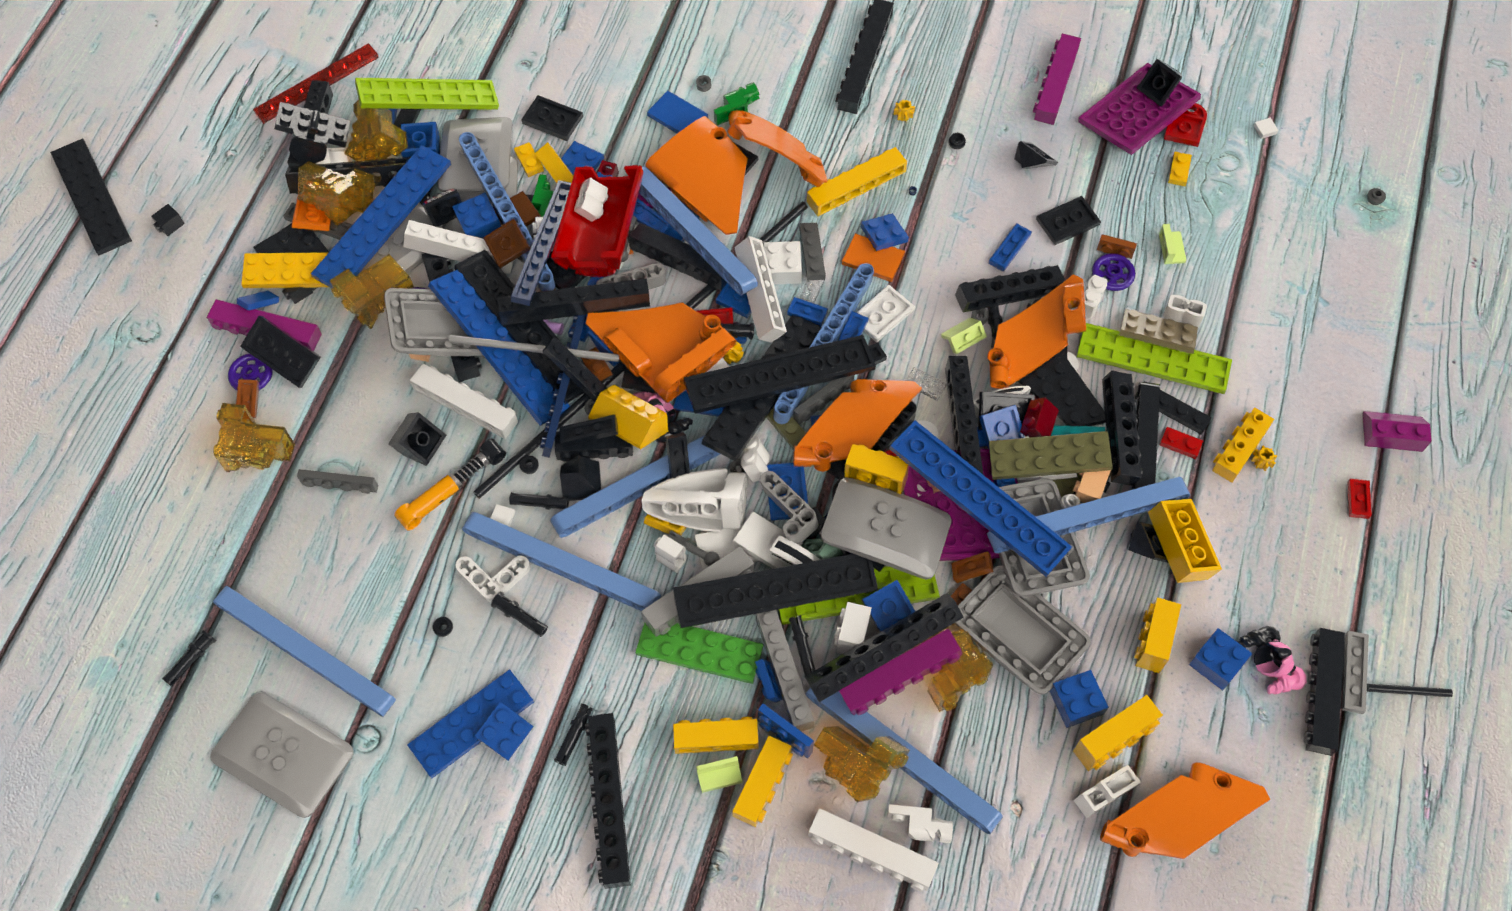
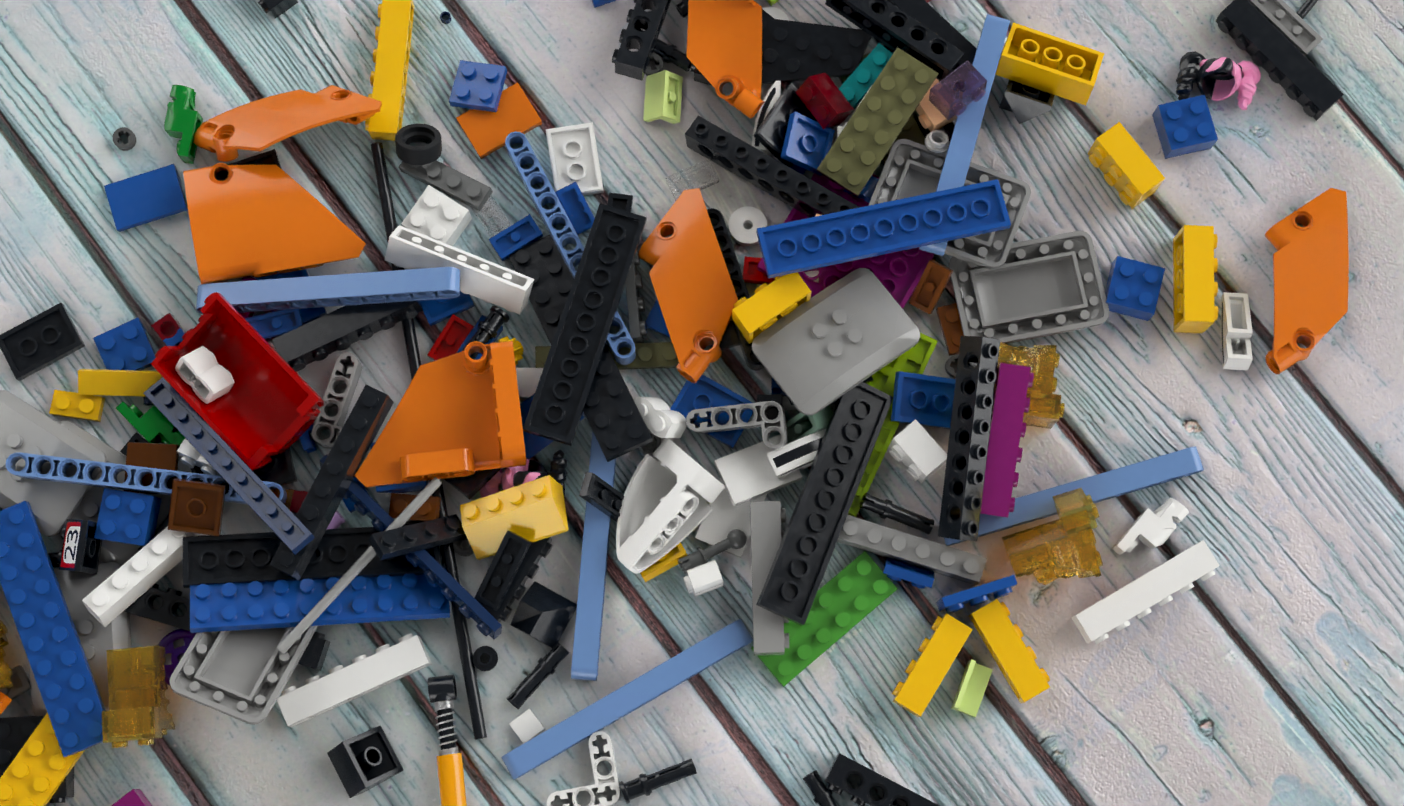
camera: 55 degrees left, 15 degrees up
(821, 222) = (418, 154): none -> black tyre
(1111, 486) = (958, 90): none -> clear purple brick

